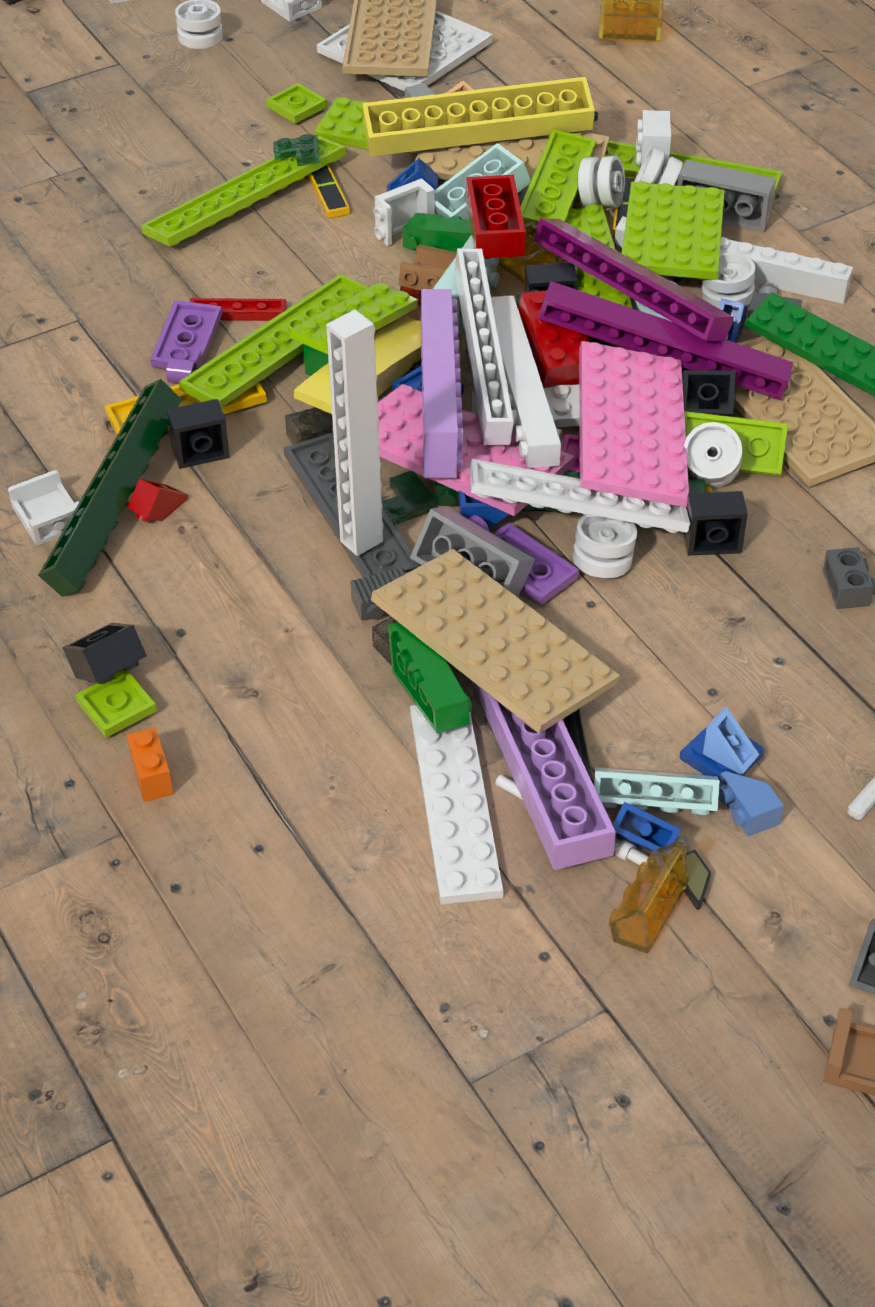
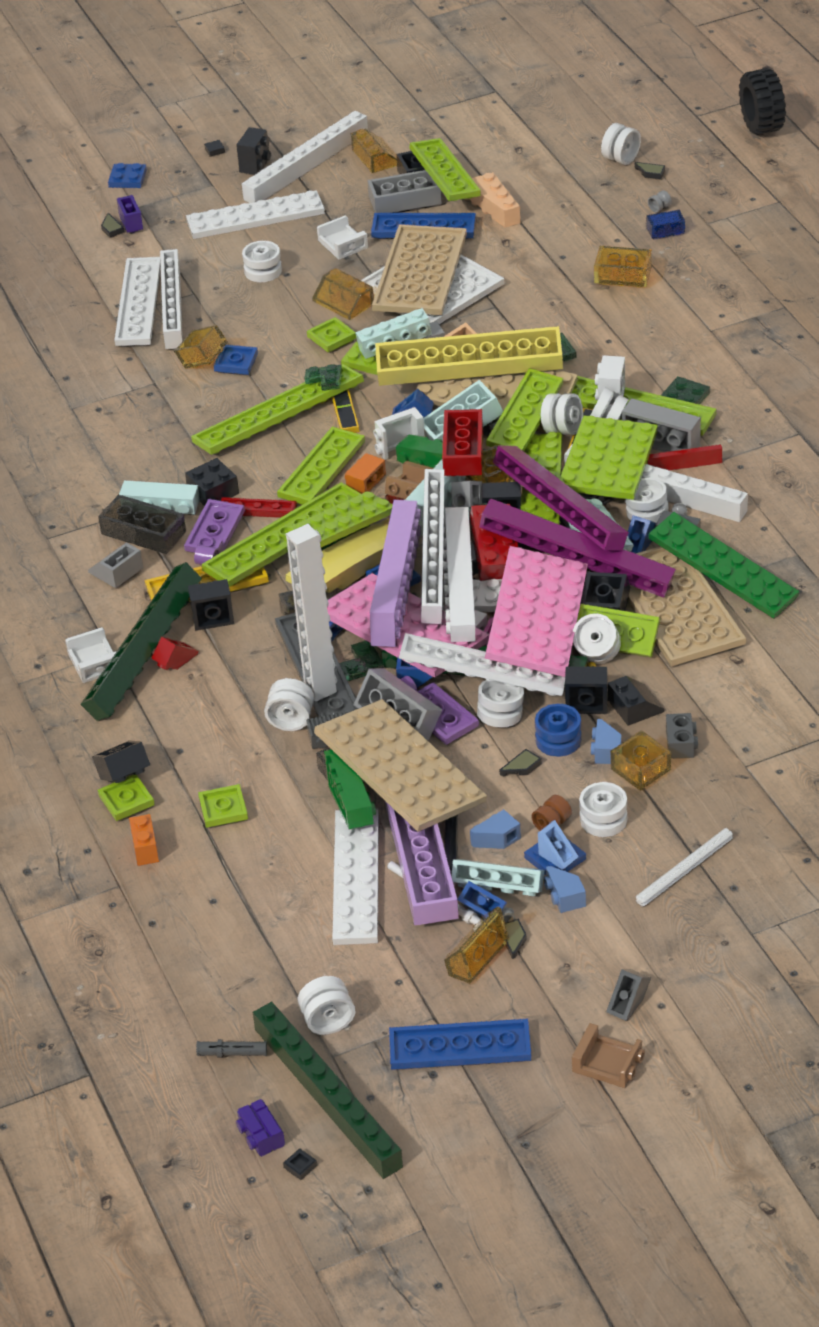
camera: 10 degrees right, 5 degrees down
(53, 74) = (138, 301): none -> white plate
(67, 388) = (118, 565): none -> light grey slope
(92, 334) = (142, 524): none -> clear smoke brick
(95, 69) = (171, 298): none -> white brick
(110, 300) = (175, 497): none -> light aqua brick
(139, 120) = (201, 347): none -> clear yellow brick
(175, 278) = (213, 481): none -> black brick
(183, 134) = (236, 359): none -> blue plate
(253, 707) = (222, 805): none -> lime plate
(280, 1083) = (231, 1048): none -> dark grey pin
(304, 57) = (343, 294): none -> clear yellow slope
(310, 256) = (321, 465): none -> lime plate
(324, 562) = (289, 704): none -> white wheel
(369, 261) = (365, 473): none -> orange brick
(387, 1214) = (260, 1127): none -> dark purple brick
(389, 86) = (405, 327): none -> light aqua brick
(454, 1005) = (326, 1005): none -> white wheel
(455, 1270) = (300, 1164): none -> black tile
(481, 1146) = (328, 1090): none -> dark green brick
(506, 274) = (466, 493): none -> light grey brick
(637, 724) = (496, 832): none -> medium blue slope
(647, 626) = (522, 764): none -> tile
(655, 1051) = (459, 1044): none -> blue plate
(688, 578) = (558, 730): none -> blue wheel
(707, 695) = (553, 809): none -> dark orange wheel
(739, 152) = (687, 390): none -> clear green plate
(755, 593) = (605, 739): none -> medium blue slope
(765, 228) = (686, 458): none -> red tile
(774, 535) = (632, 700): none -> black slope
(775, 685) = (603, 809): none -> white wheel
(808, 614) = (640, 760): none -> clear yellow brick

